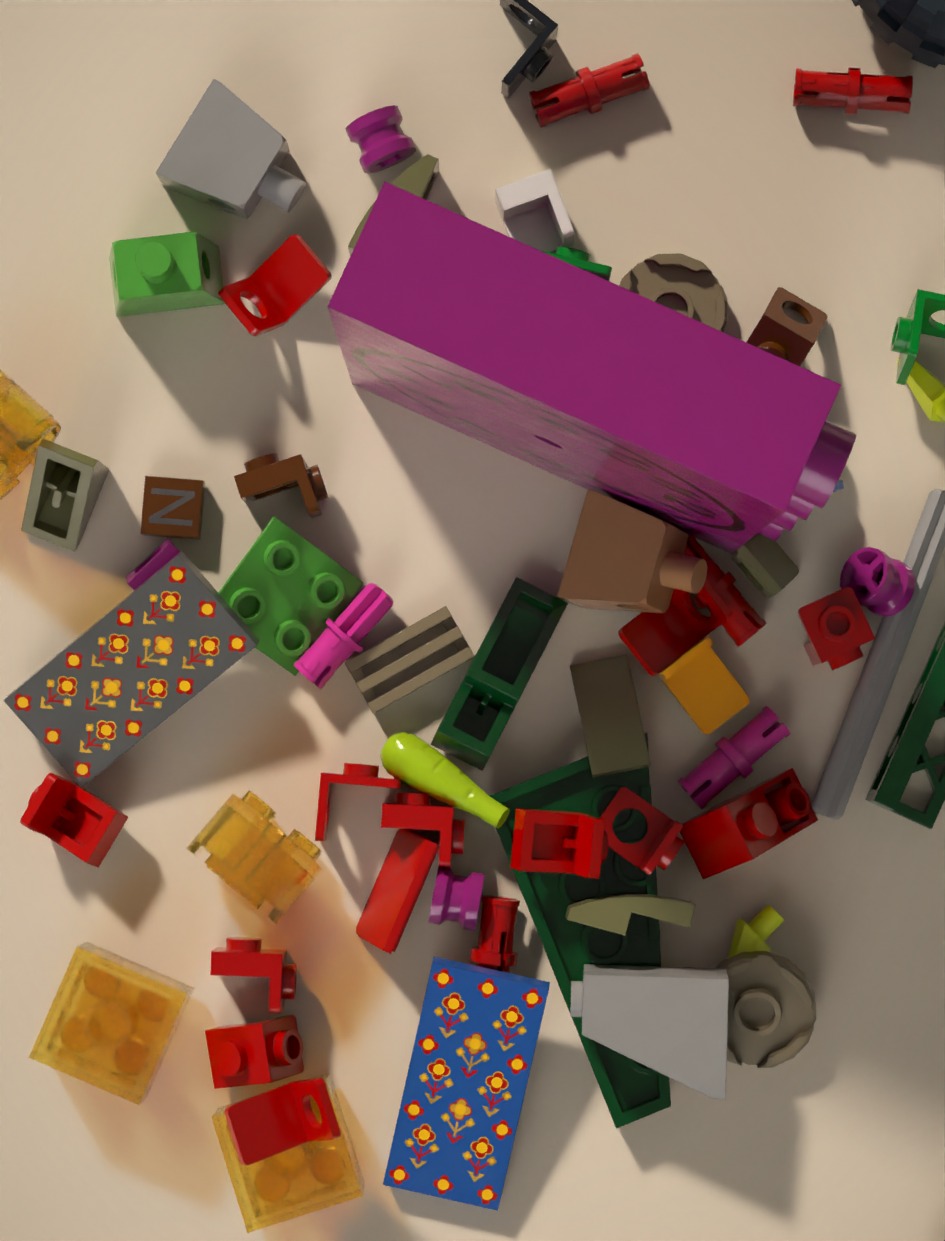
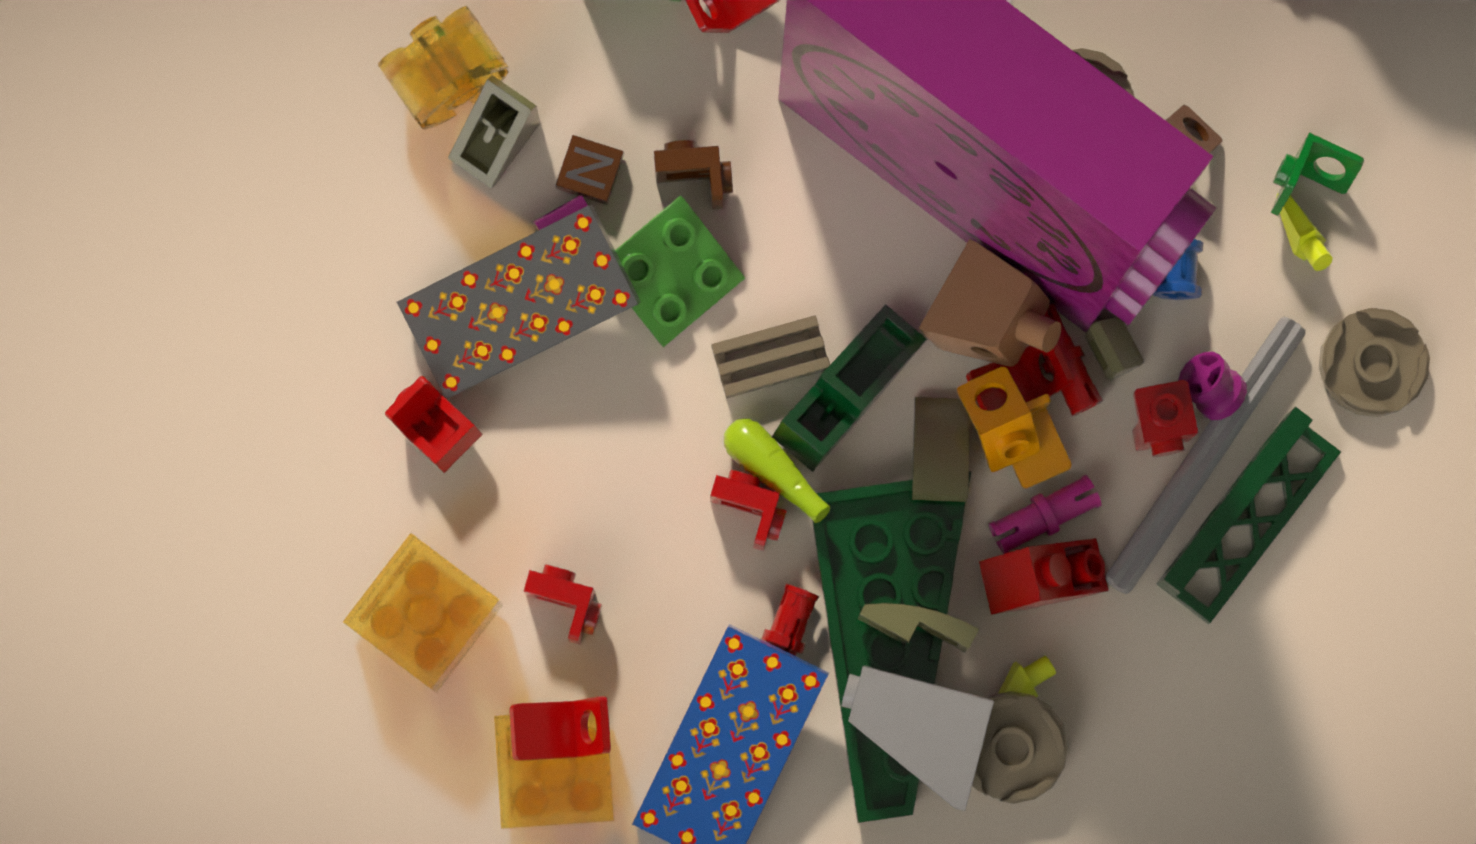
camera: 10 degrees right, 5 degrees down
(255, 1052) = (544, 674): red bracket -> none
(256, 855) = (592, 494): clear yellow brick -> none
(344, 635) = (717, 319): dark pink axle -> none
(352, 774) = (695, 446): red bracket -> none
(396, 889) = (710, 560): red slope -> none
(456, 898) = (762, 579): magenta wheel -> none
(559, 842) = (868, 547): red bracket -> none
(660, 841) = (957, 572): red bracket -> none
(673, 687) = (1006, 432): none -> light orange bracket

